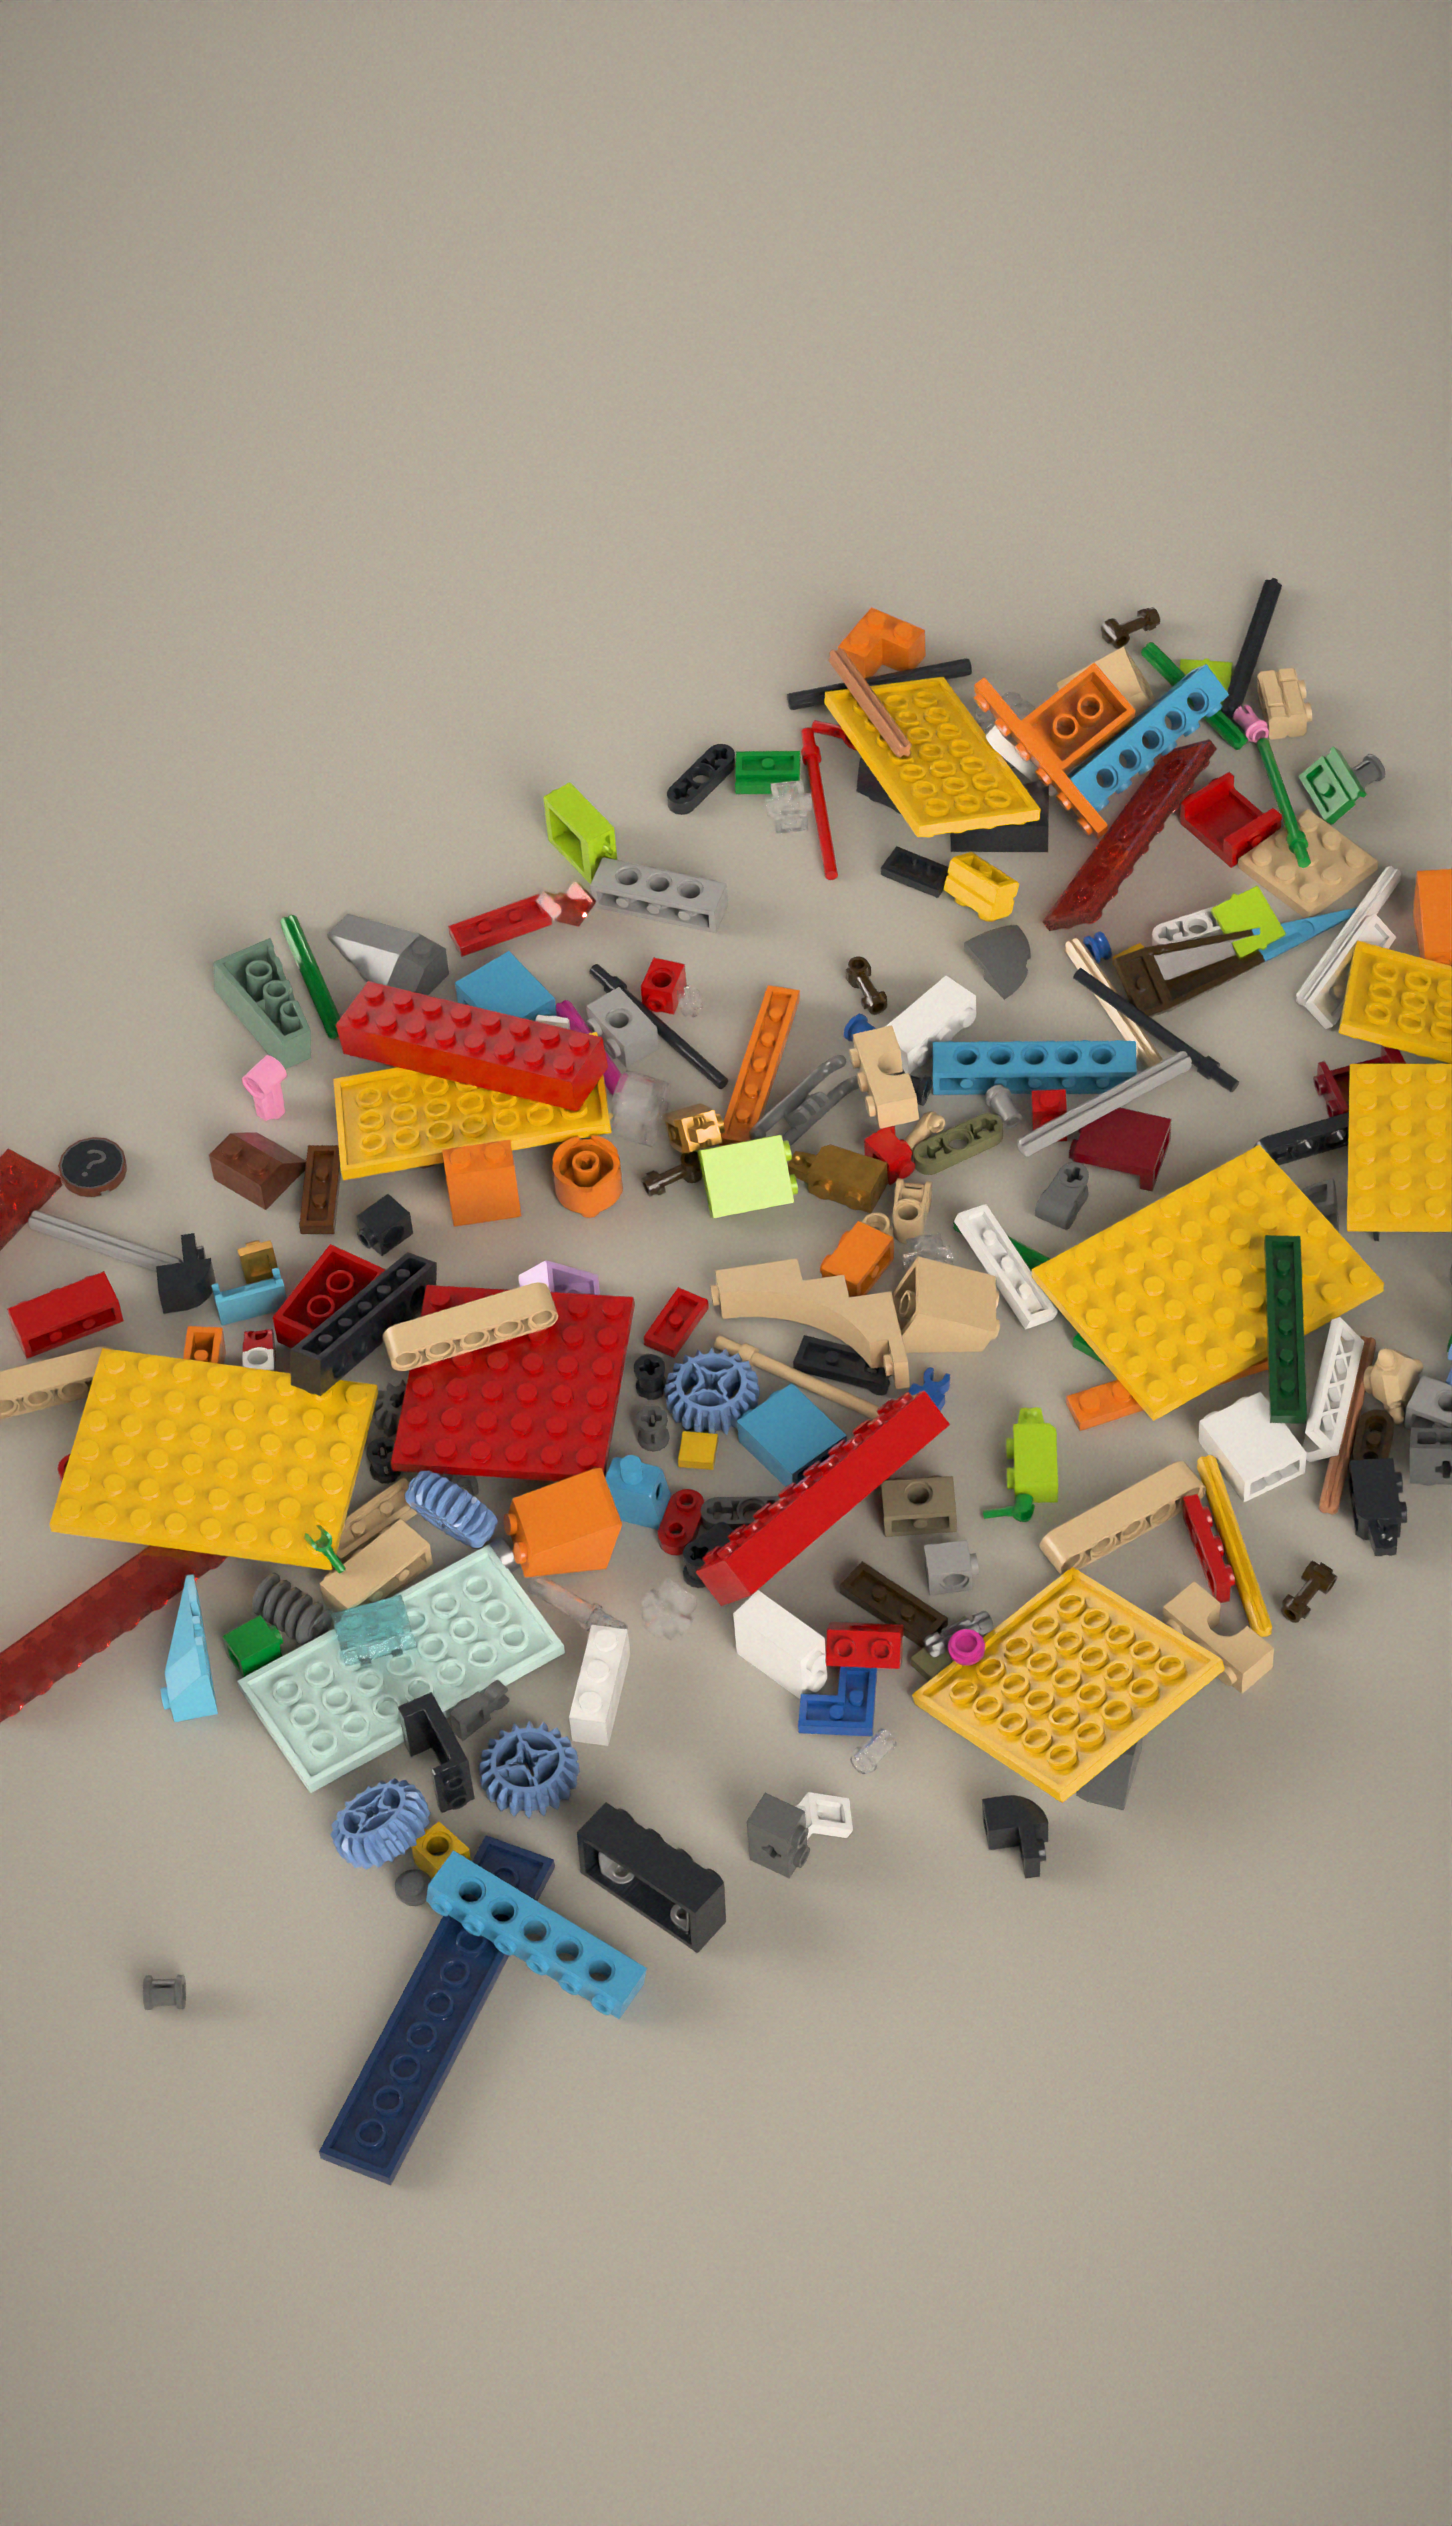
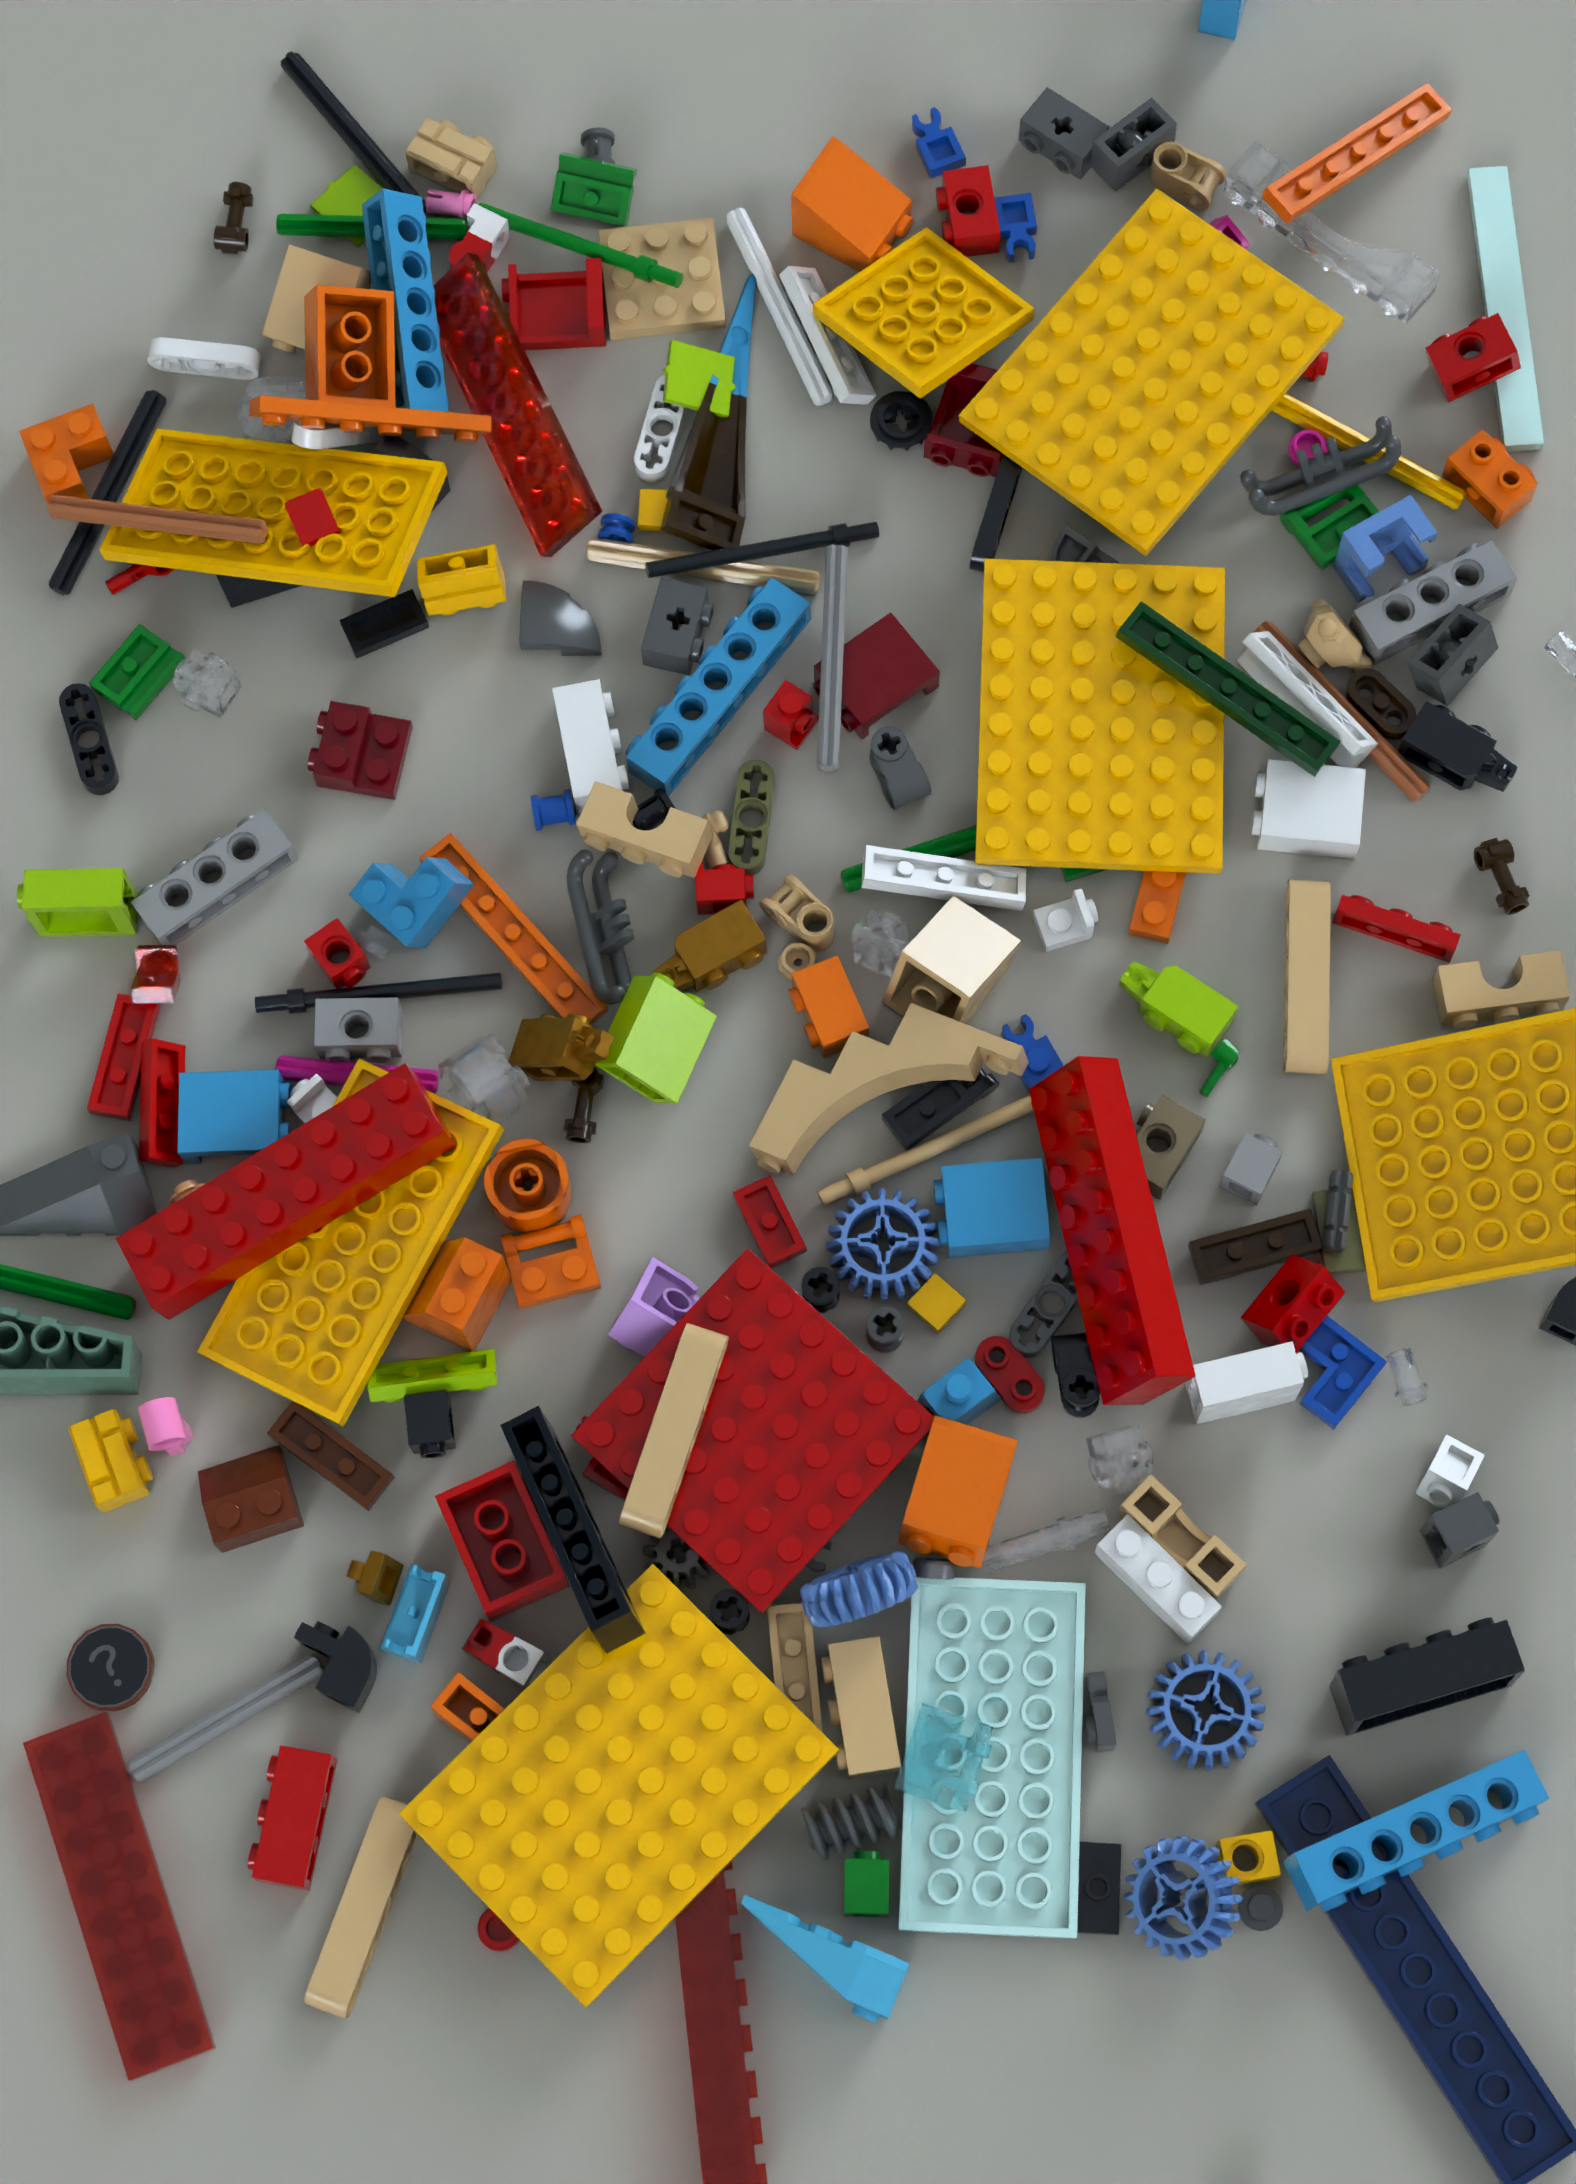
camera: 55 degrees left, 20 degrees up
(220, 1083) = (110, 1459): none -> yellow brick
(324, 1545) = (823, 1745): green hand -> none
(356, 1779) = (1099, 1888): none -> black plate
(427, 1728) = (1141, 1777): black panel -> none
(437, 1225) = (447, 1372): none -> lime plate
(512, 939) = (160, 1101): none -> red plate
(542, 1233) = (555, 1274): none -> orange plate
(643, 1666) = (1199, 1554): none -> tan arch
(732, 996) = (414, 906): none -> dark azure brick
(811, 758) = (152, 619): red bar -> none
(816, 913) = (359, 750): none -> dark red plate
(858, 977) = (470, 766): dark brown bar -> none
(938, 766) = (311, 517): none -> red slope
(966, 1647) = (1365, 1216): dark pink plate -> none
(999, 1099) = (740, 746): light grey pin -> none
(1016, 670) = (204, 358): none -> white beam
(1040, 1359) = (1066, 921): none -> white bracket
(1057, 1016) = (674, 605): none -> dark grey brick
(1234, 1546) = (1392, 897): yellow axle -> none
(1236, 755) = (485, 237): none -> leg
(1328, 1039) = (912, 408): none -> black gear

